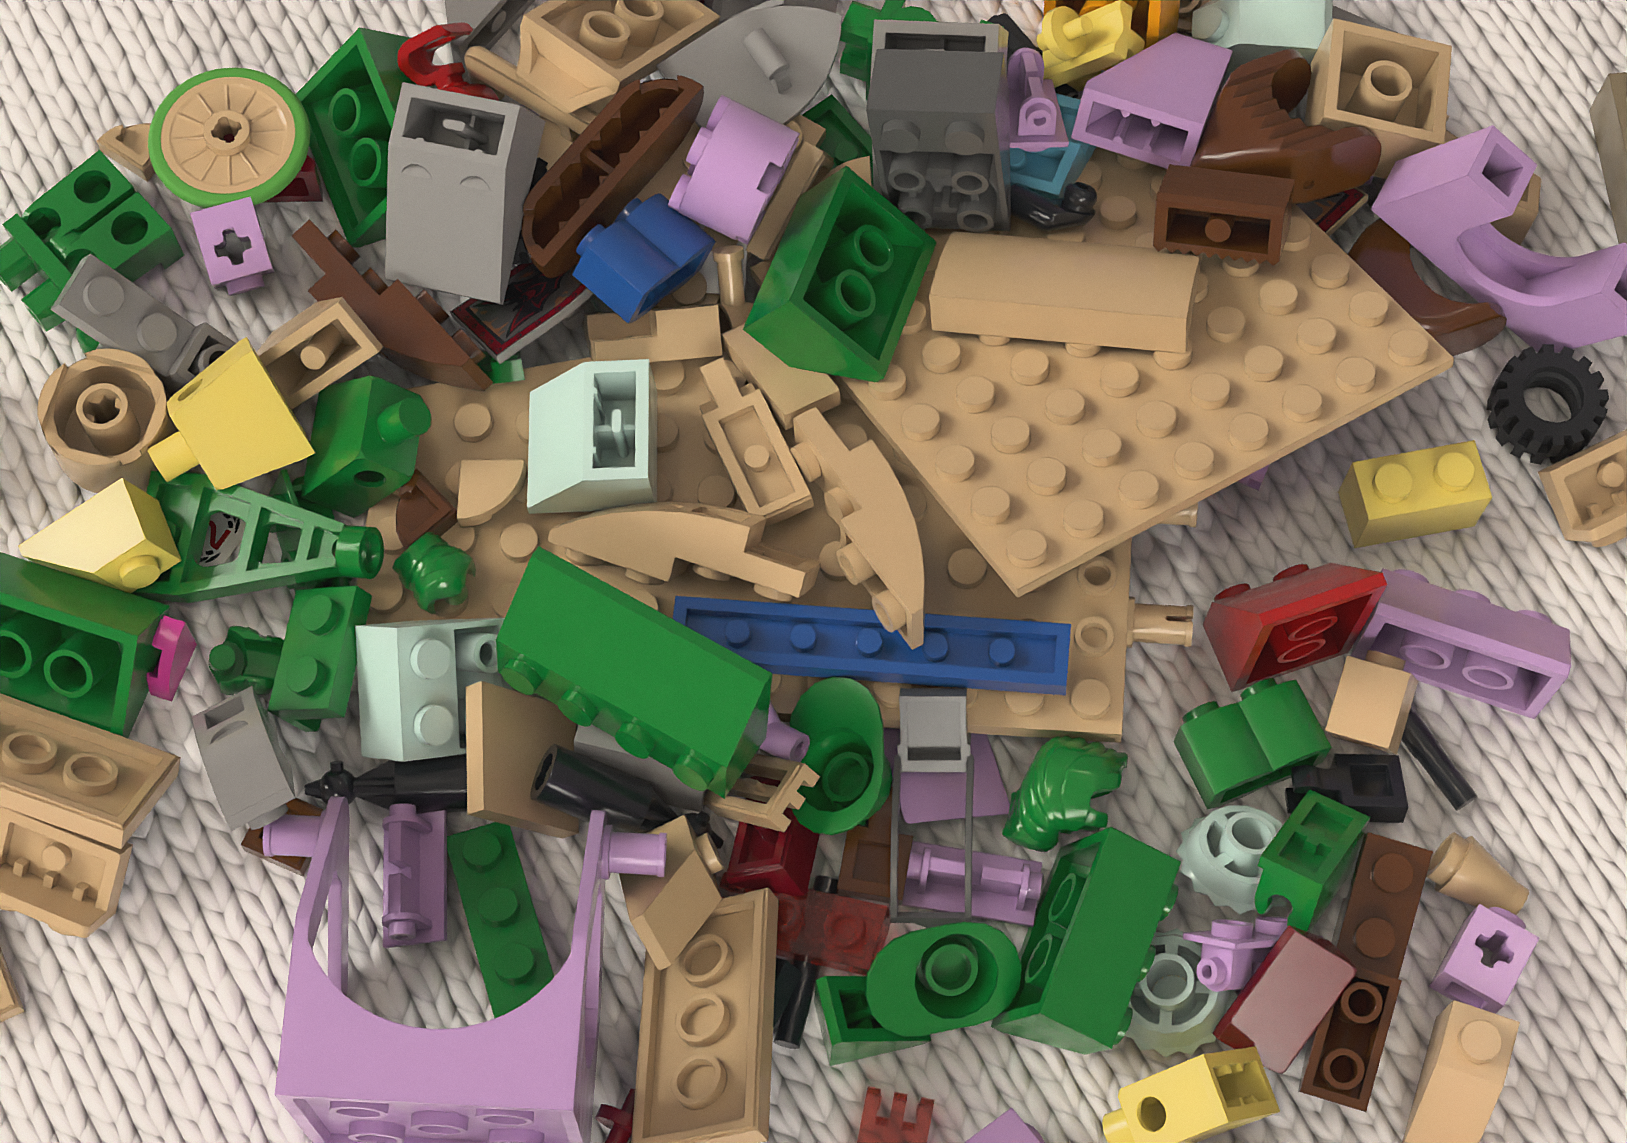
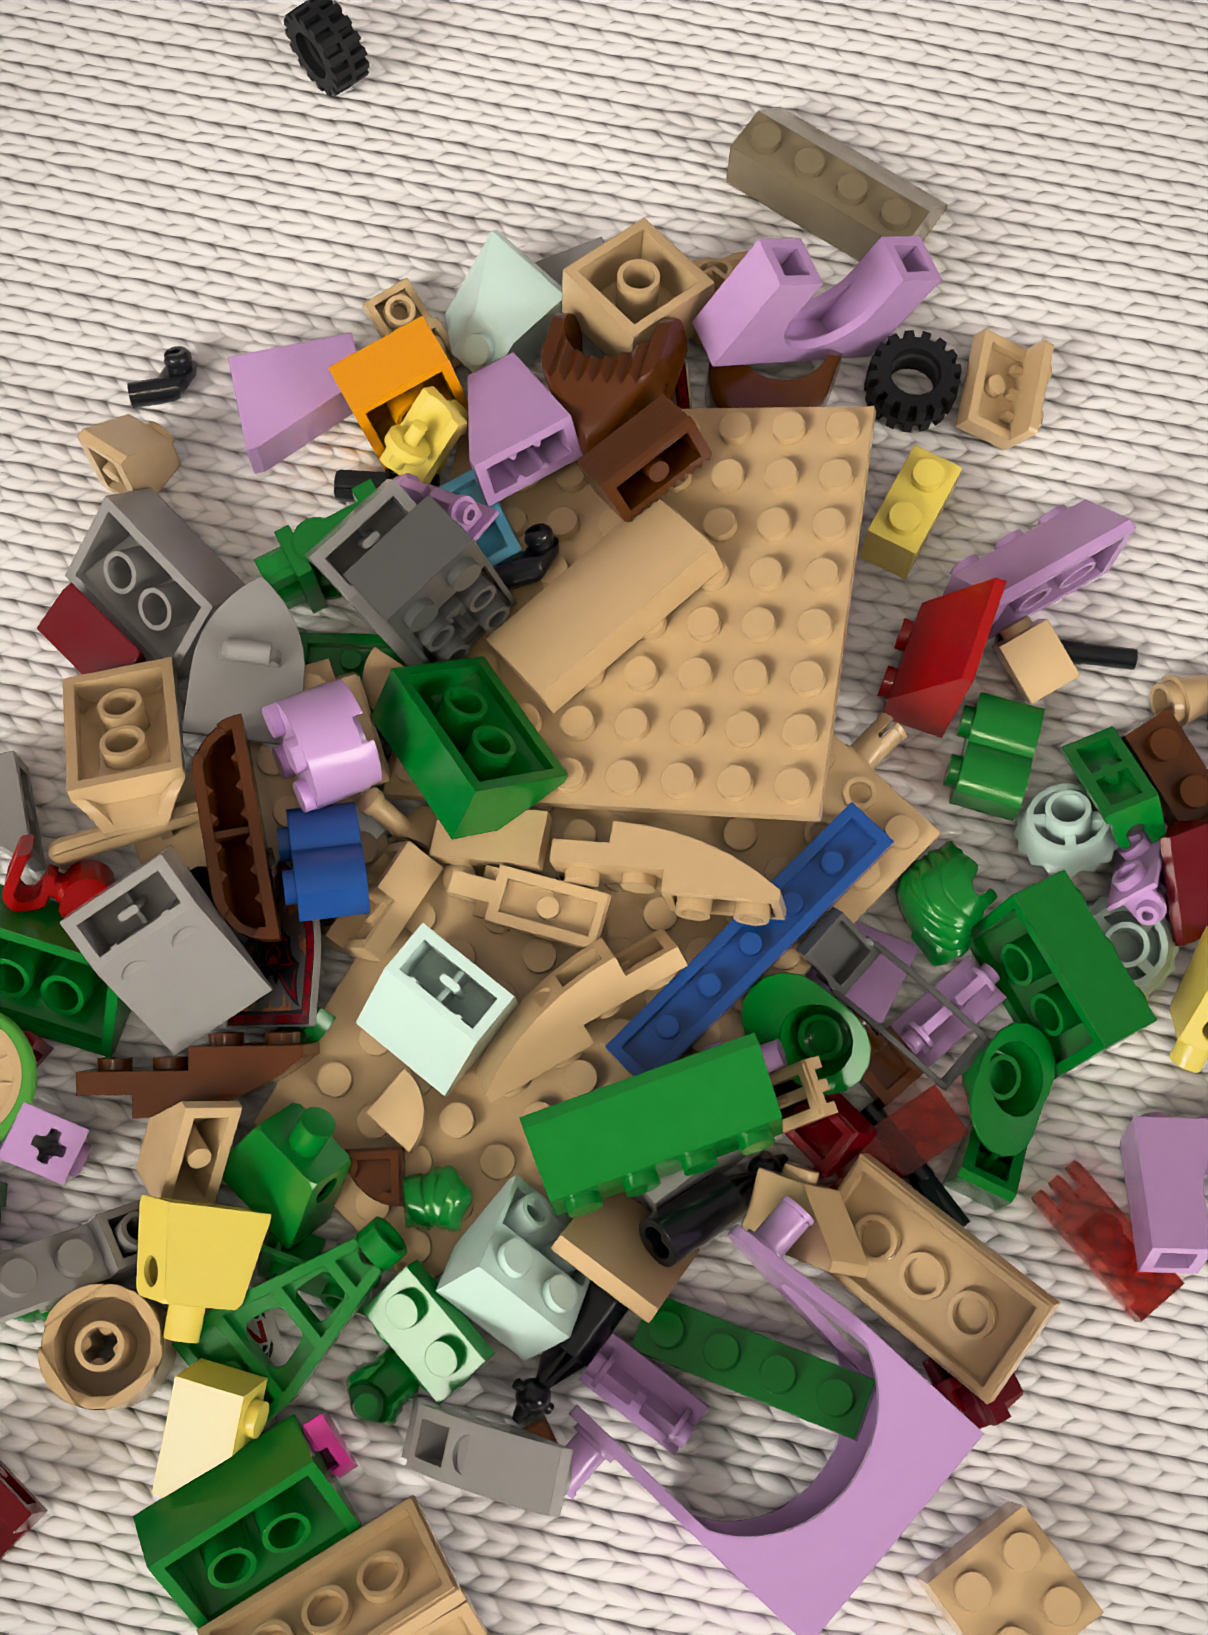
camera: 50 degrees left, 5 degrees up
(1359, 781) = (1075, 714): black plate -> none

